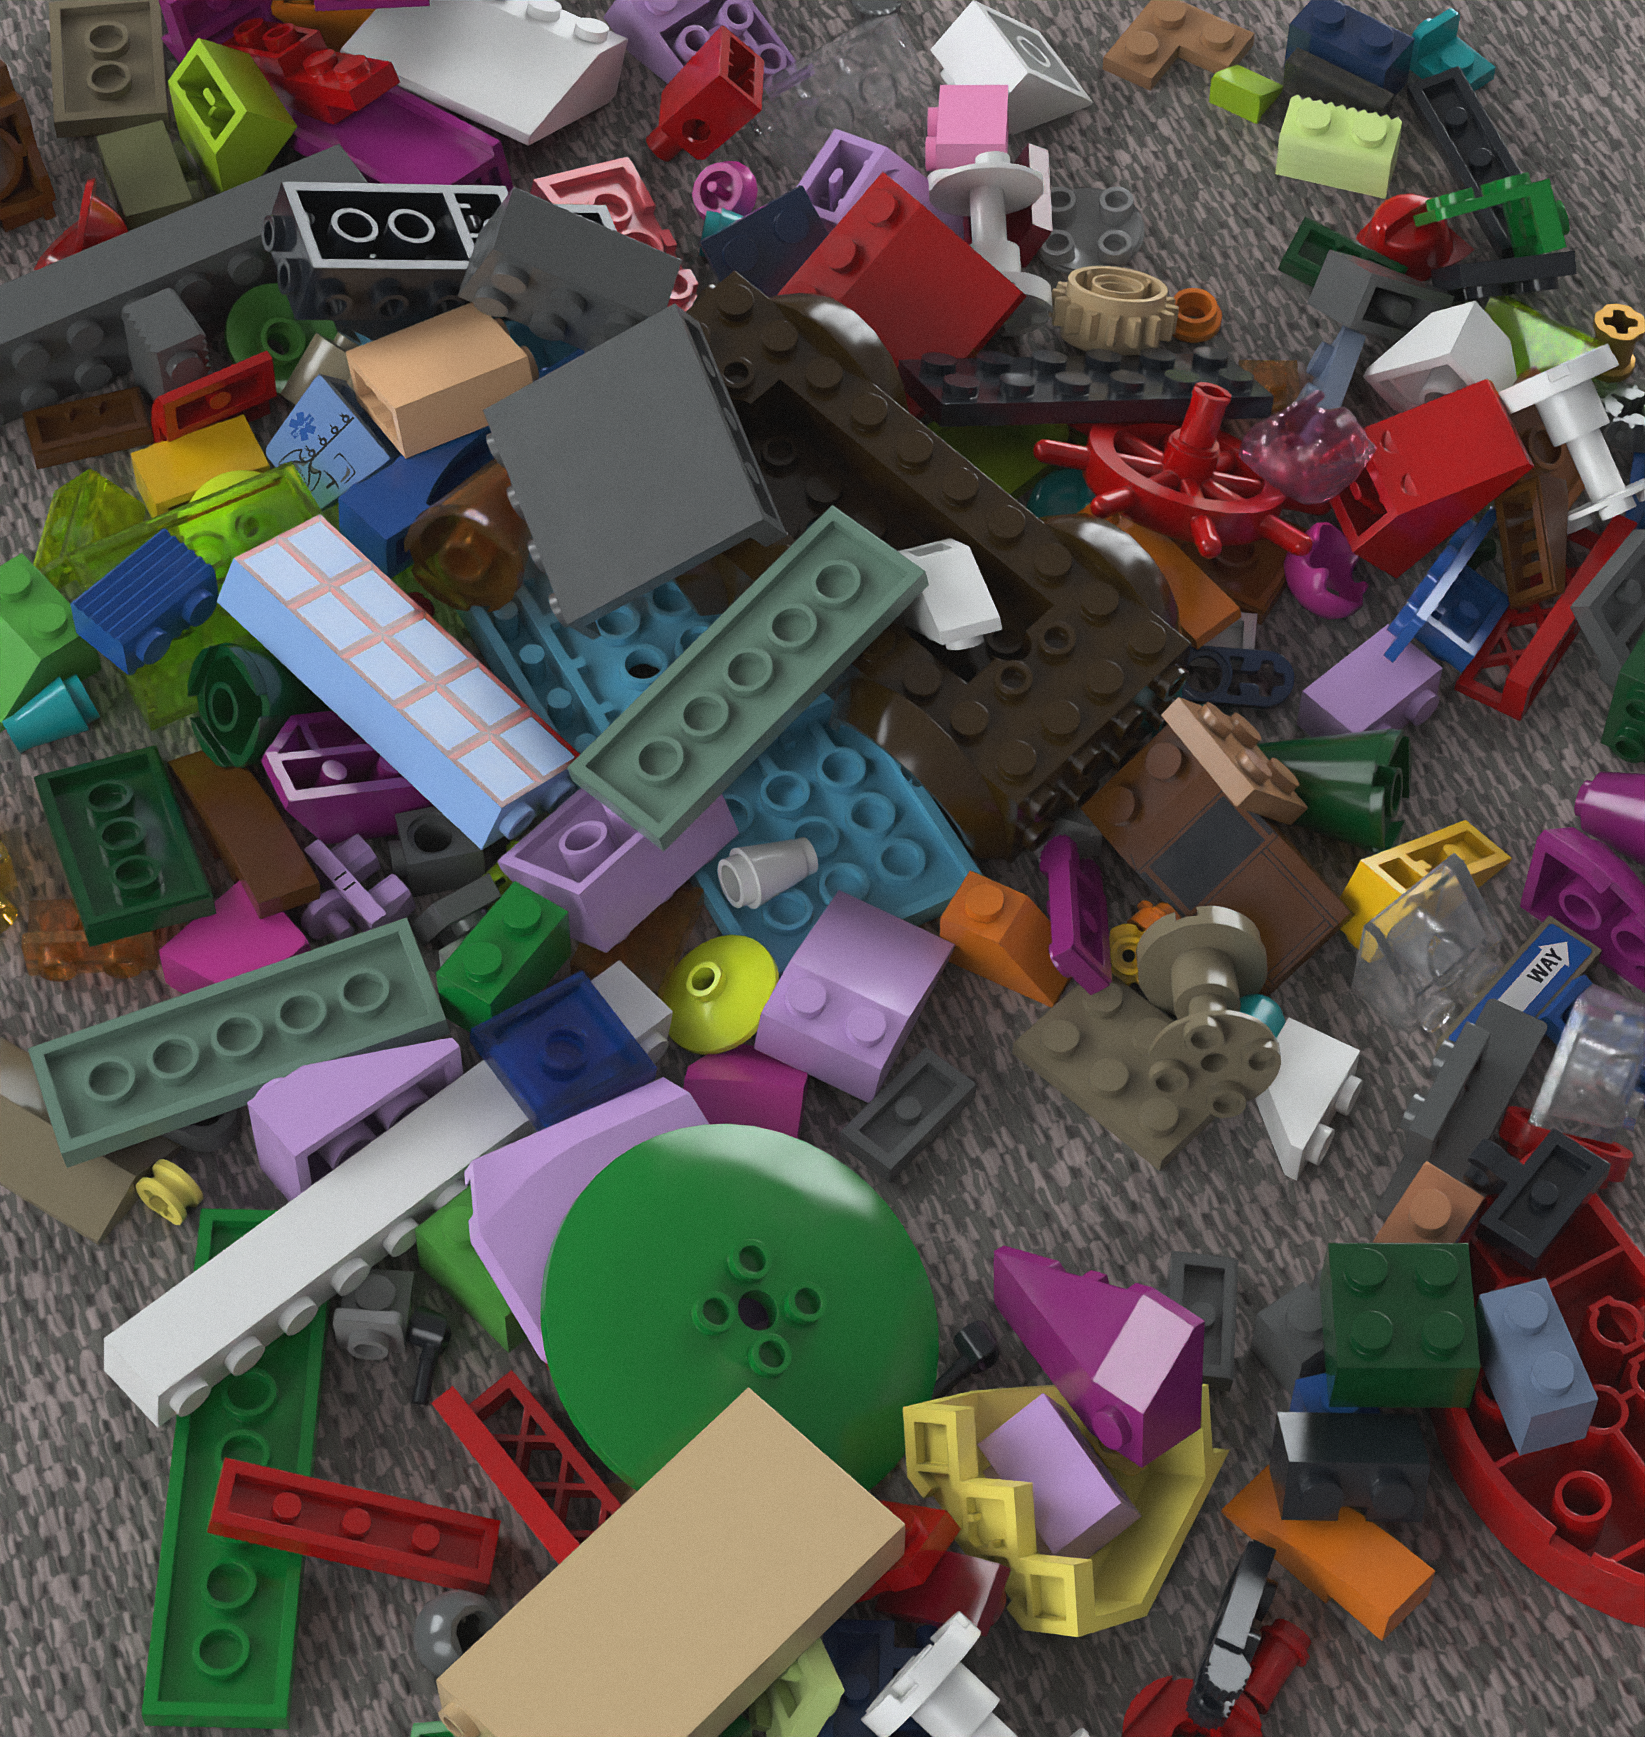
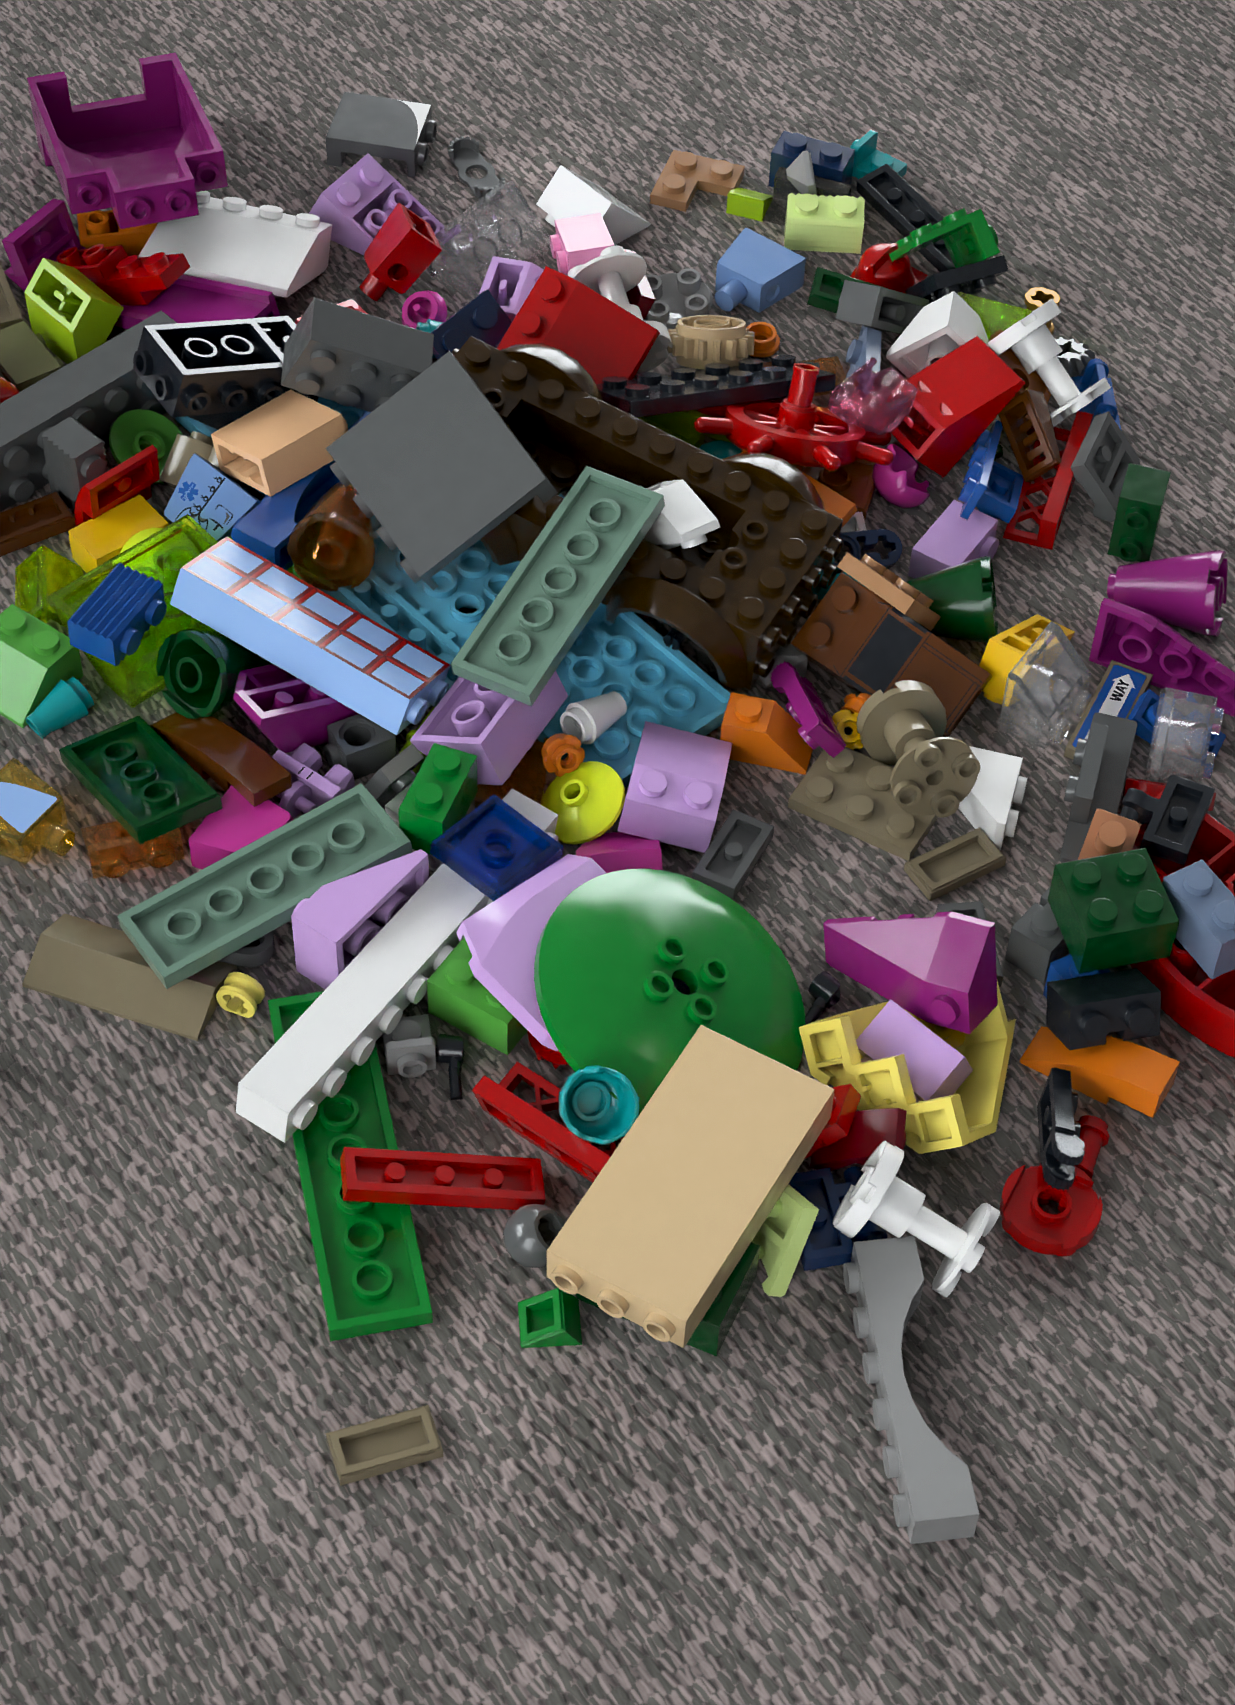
camera: 15 degrees left, 5 degrees down
(575, 1476) = (590, 1108): none -> teal hair
(703, 907) = (556, 747): none -> orange plate
(1217, 209) = (757, 273): none -> medium blue torso
(1222, 1189) = (954, 864): none -> dark tan tile
(1323, 69) = (801, 174): none -> light grey slope

